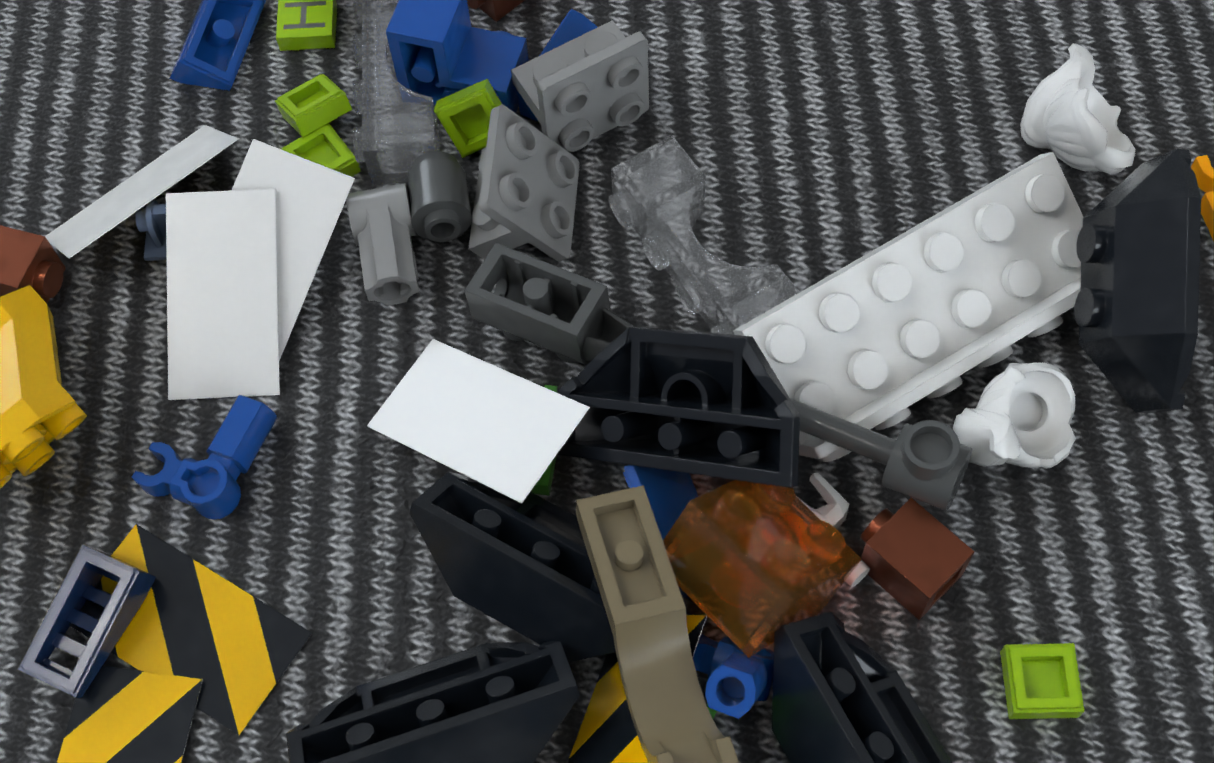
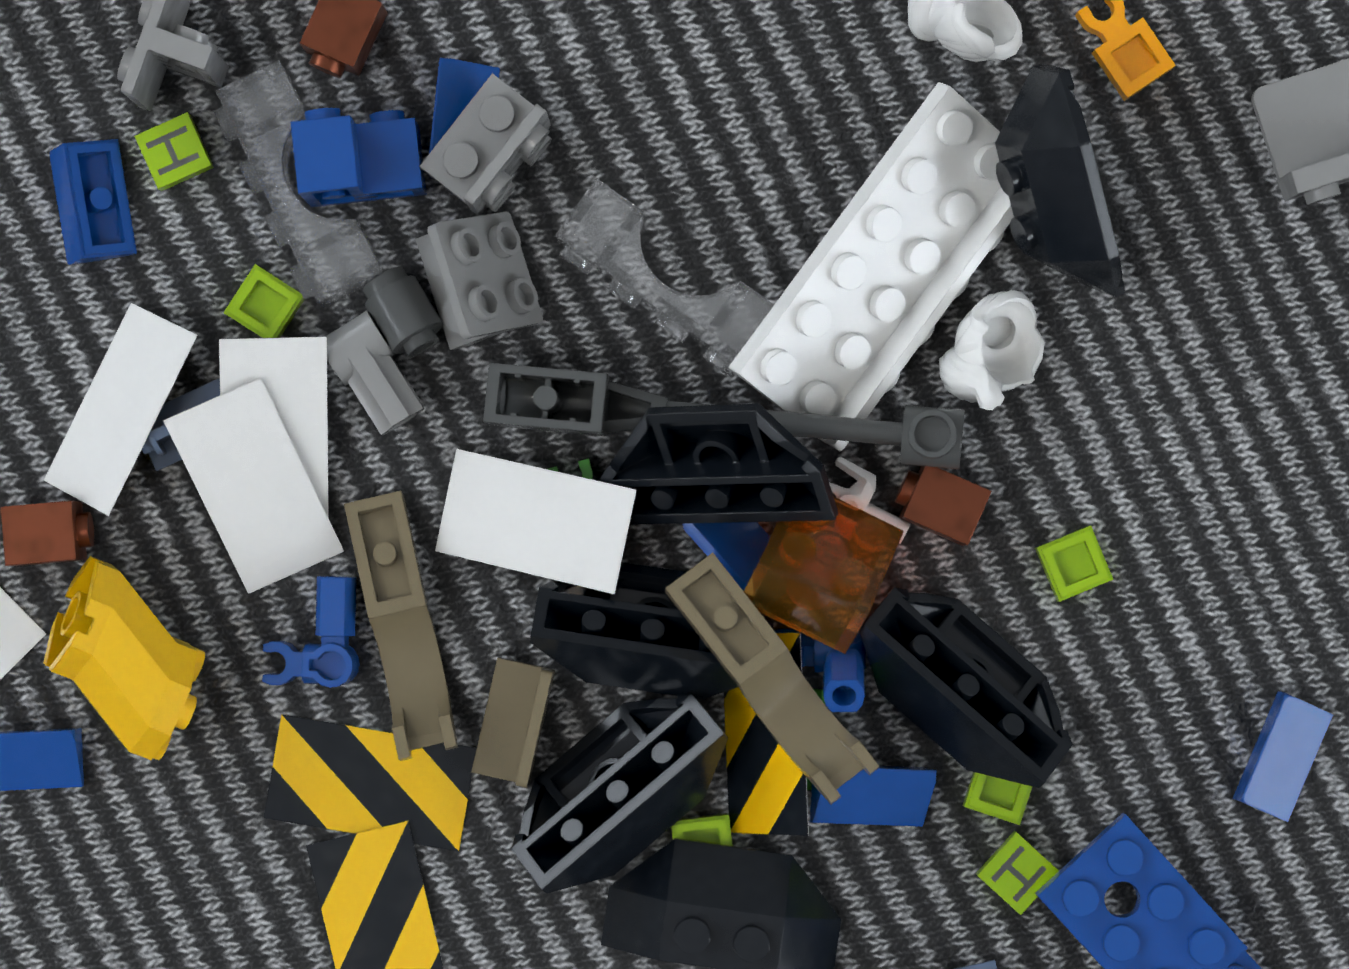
camera: 25 degrees left, 25 degrees up
(65, 610) = (292, 764): dark blue slope -> none
(296, 474) = (401, 623): none -> dark tan piece
(313, 104) = (232, 251): lime tile -> none
(363, 615) = (513, 721): none -> dark tan panel
(467, 116) = (399, 217): lime tile -> none

